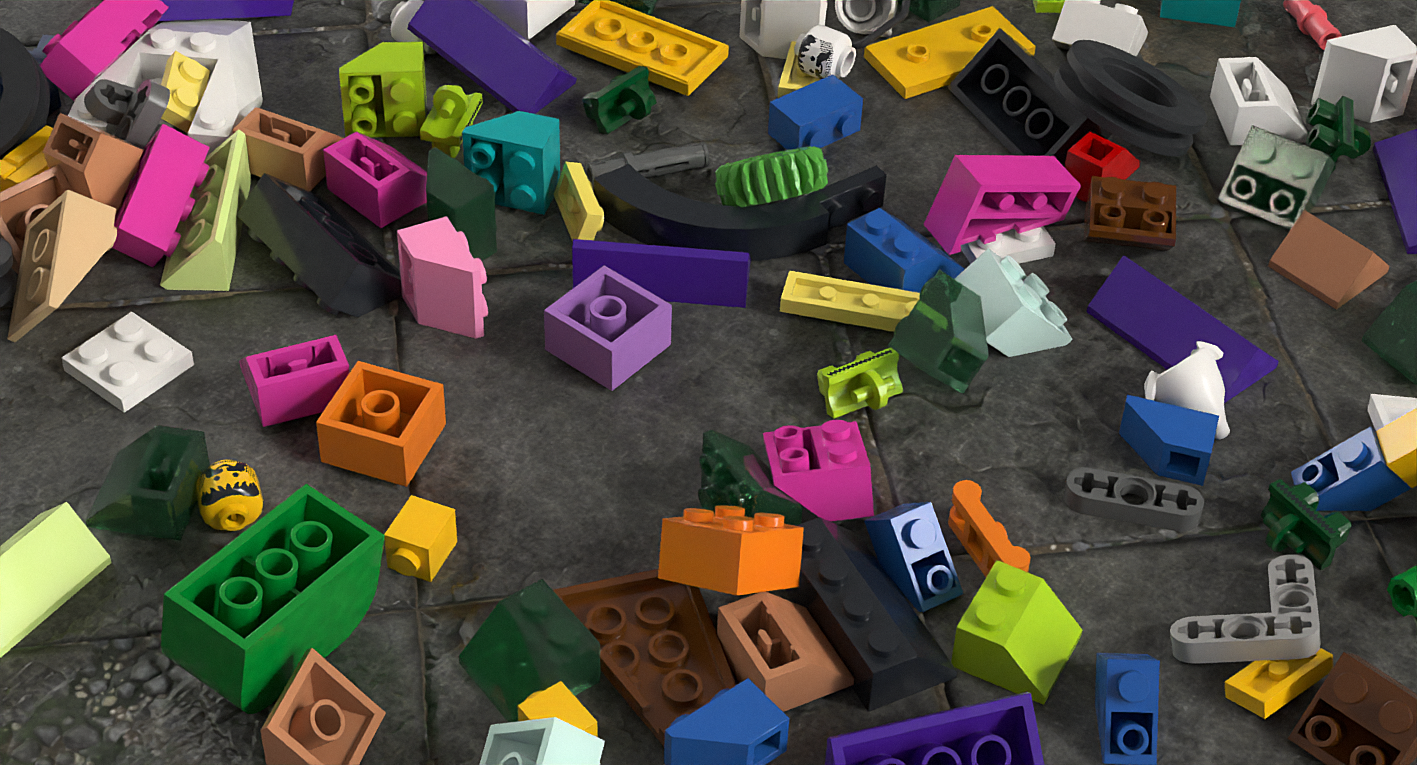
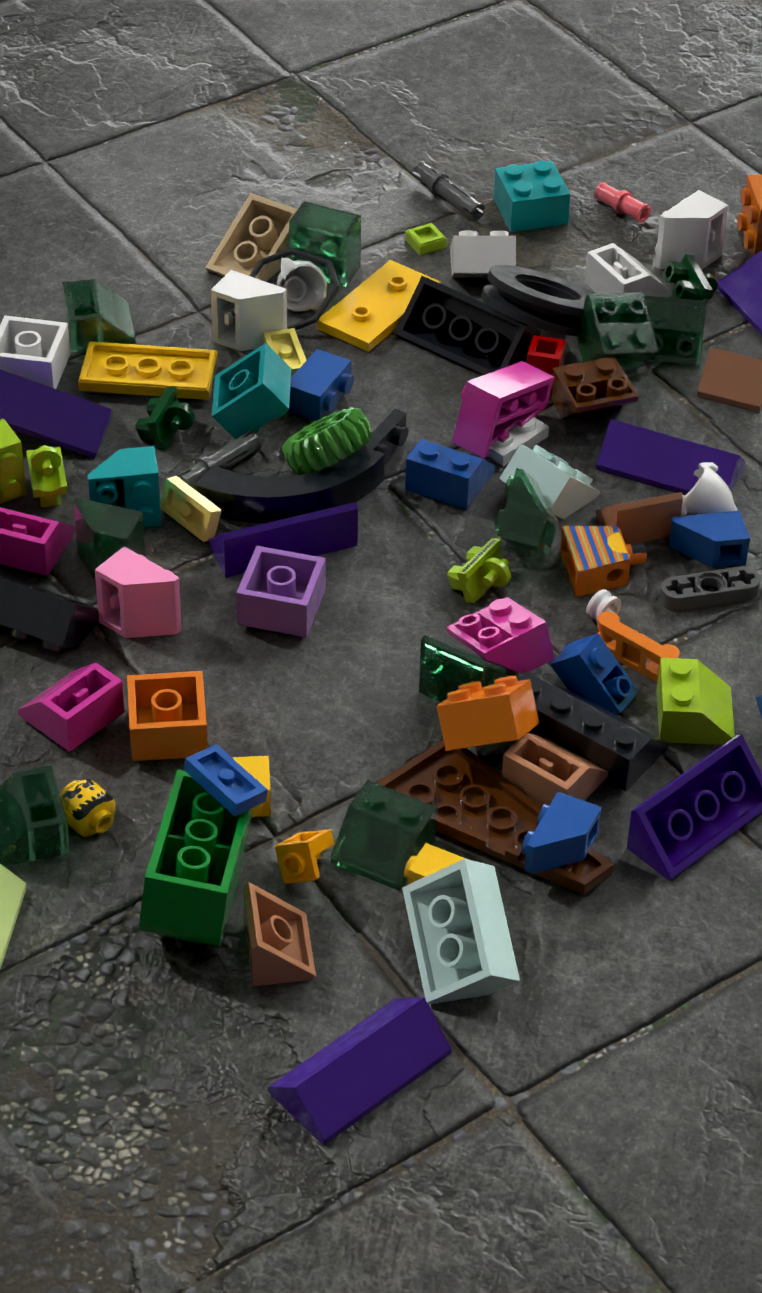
camera: 25 degrees left, 0 degrees up
(341, 515) = (225, 780): none -> blue plate
(417, 634) = (299, 855): none -> light orange bracket
(726, 98) = (252, 392): none -> teal brick
(825, 52) = (300, 334): white head -> none
(846, 301) = (441, 514): light yellow plate -> none
(984, 471) = (601, 603): none -> white bush
(1012, 415) = (598, 557): none -> orange torso
(1094, 386) = (643, 519): none -> nougat slope
(1198, 154) = (616, 327): none -> clear green slope

